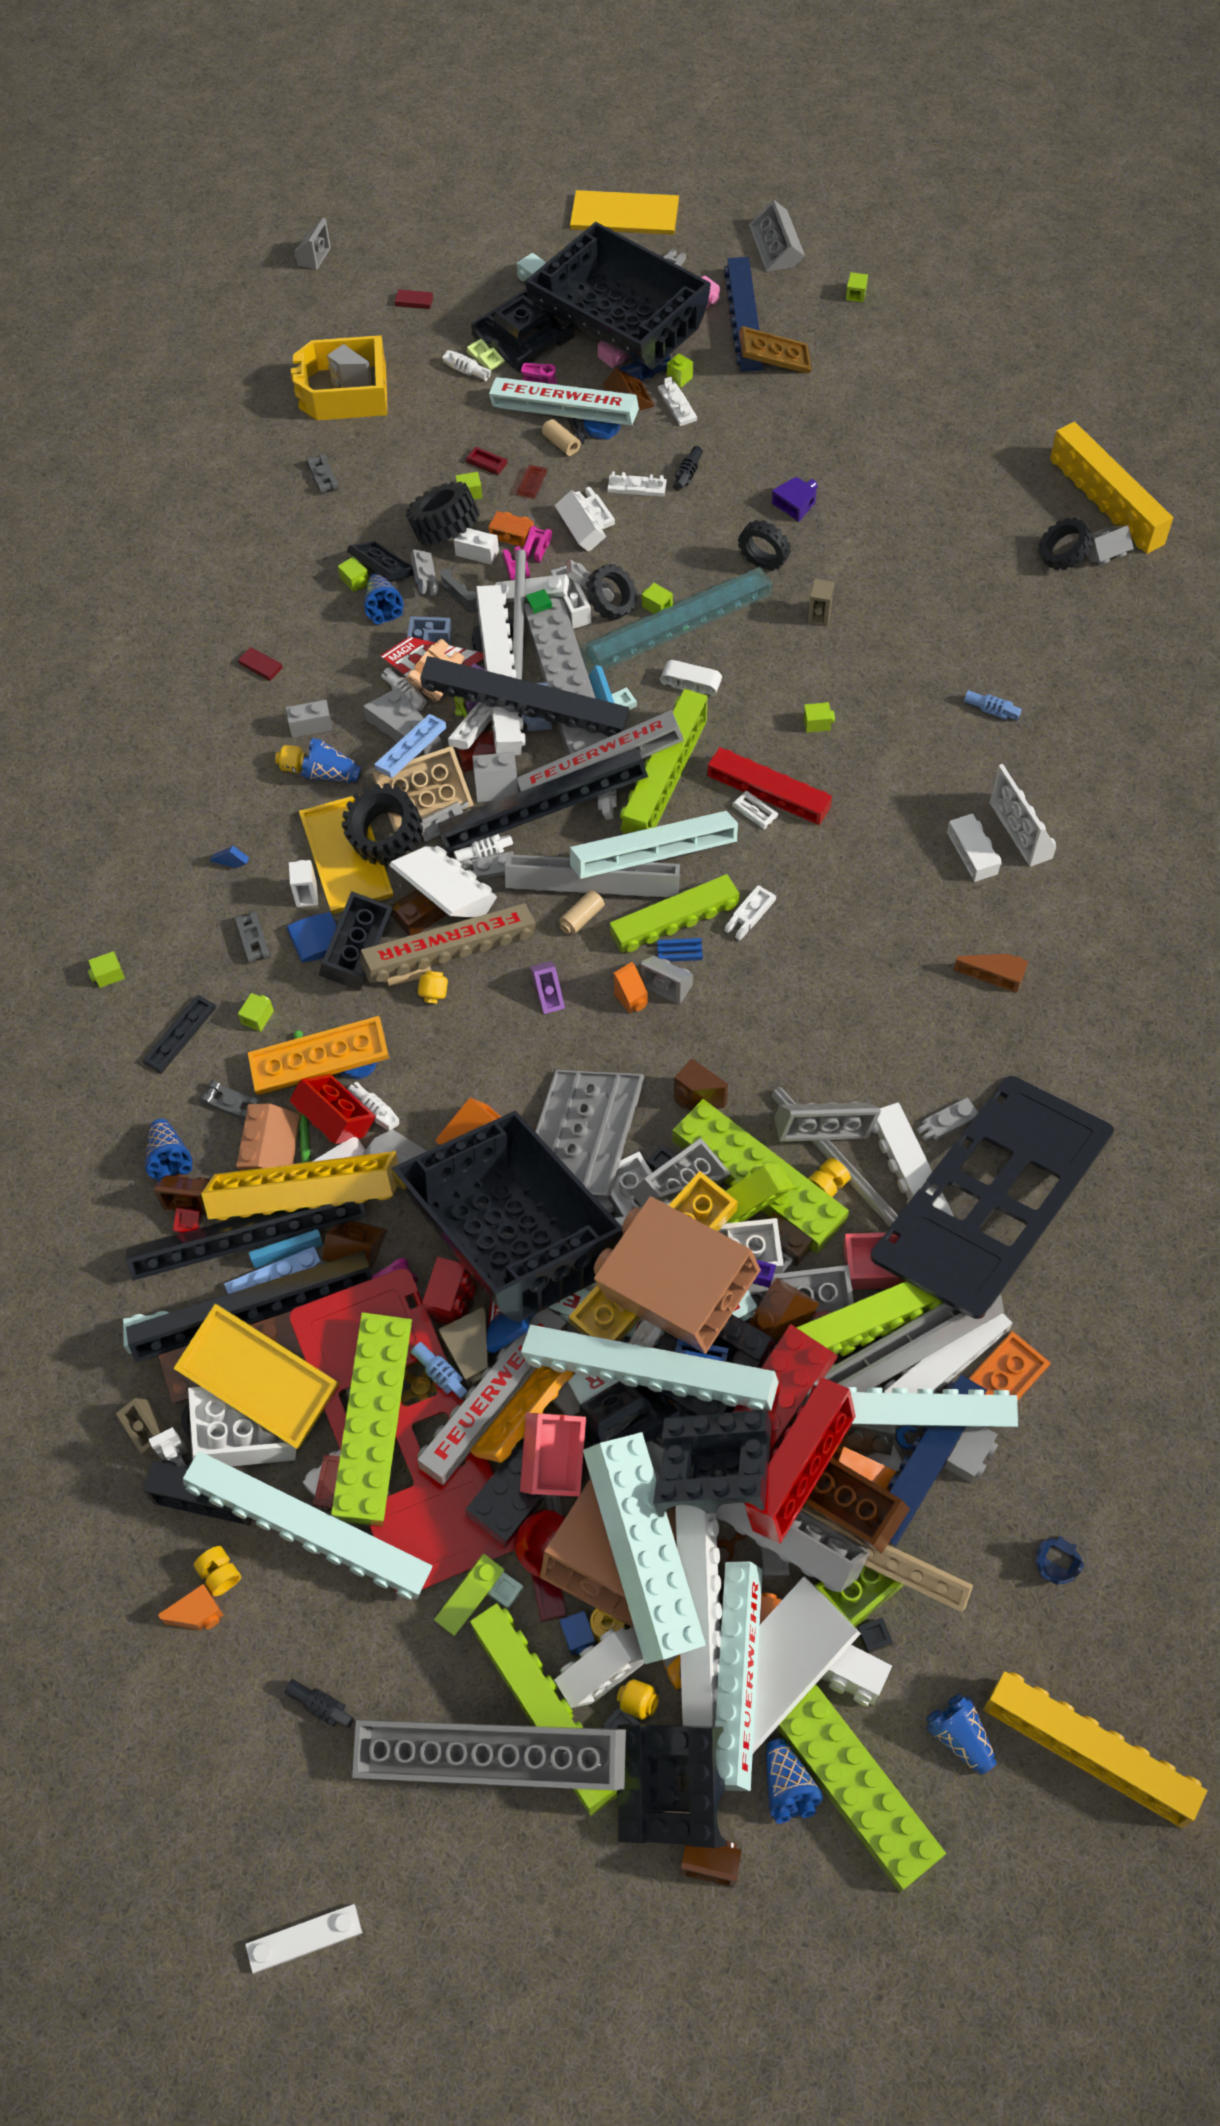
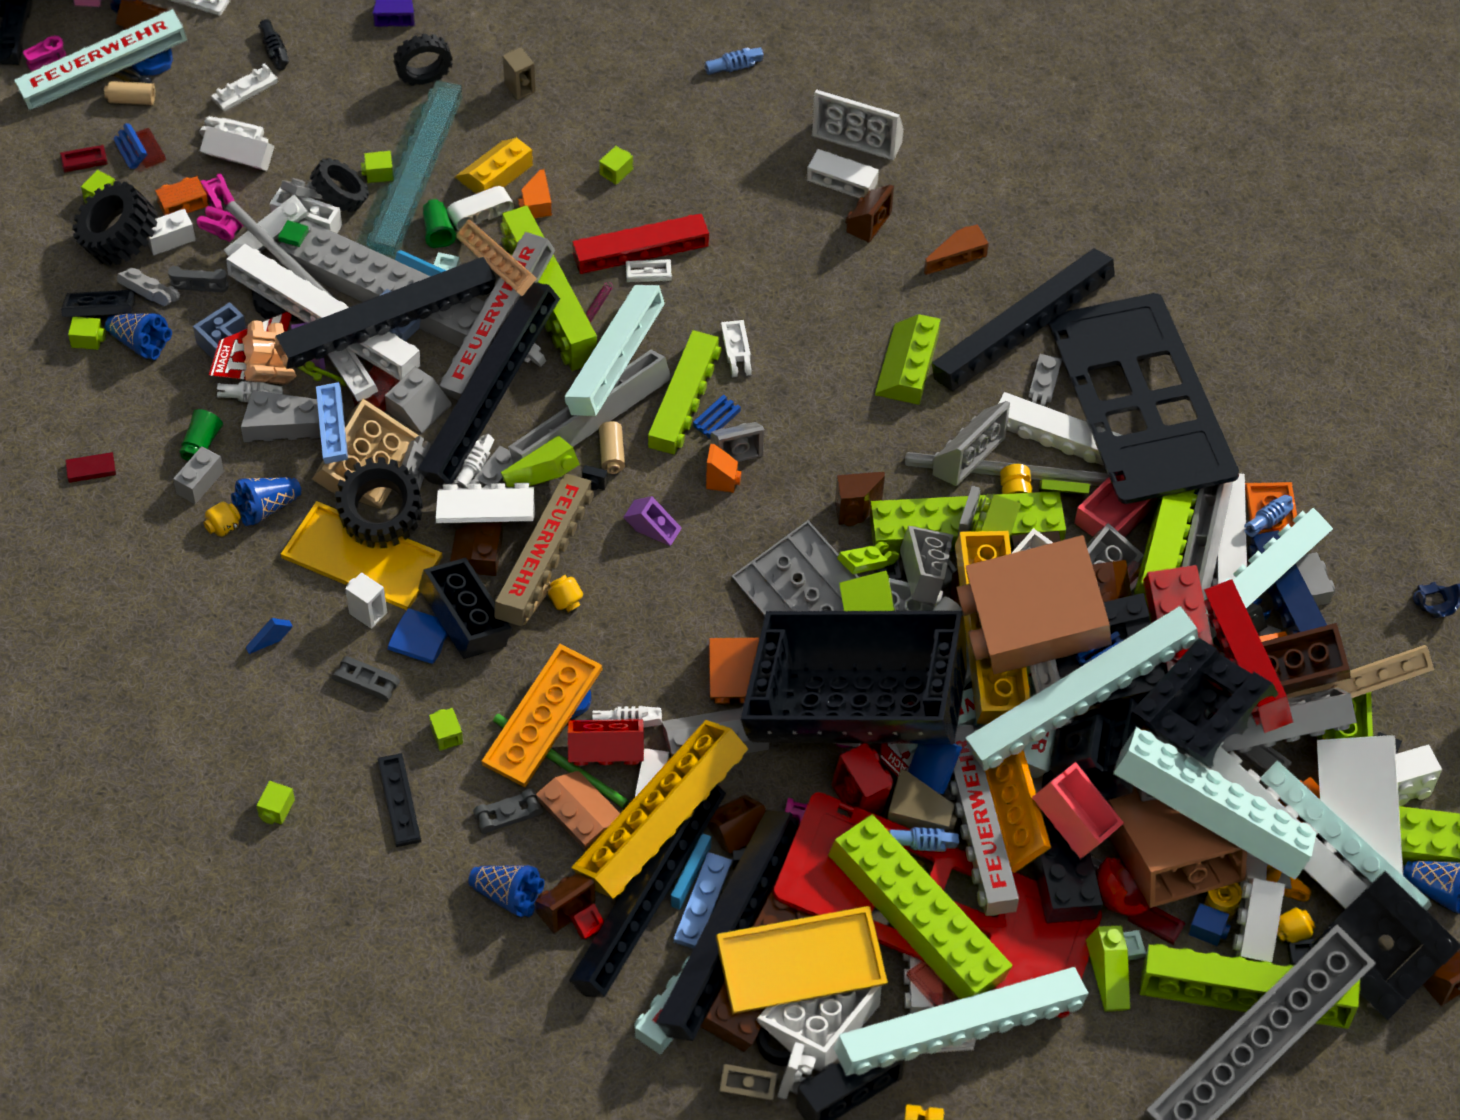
camera: 50 degrees left, 5 degrees down
(340, 693) = (200, 432): none -> green plant
(515, 885) = (543, 464): none -> lime slope
(520, 472) = (128, 149): none -> blue tile
(544, 924) = (597, 476): none -> black plate
(604, 1165) = (867, 593): none -> lime tile
(639, 715) = (497, 258): none -> light nougat tile
(648, 667) = (437, 225): none -> green plant
(648, 1137) = (868, 558): none -> lime hinge
(692, 803) = (596, 299): none -> dark pink piece
(735, 659) = (497, 166): none -> yellow slope
(736, 698) = (536, 196): none -> orange slope
(743, 1169) = (969, 510): none -> light grey tile
(859, 1210) = (1064, 486): none -> lime tile
(863, 1022) = (909, 359): none -> lime slope
(958, 892) = (870, 213): none -> reddish brown slope
(985, 1061) = (1023, 319): none -> black brick
(994, 1372) = (1269, 515): none -> medium blue hinge

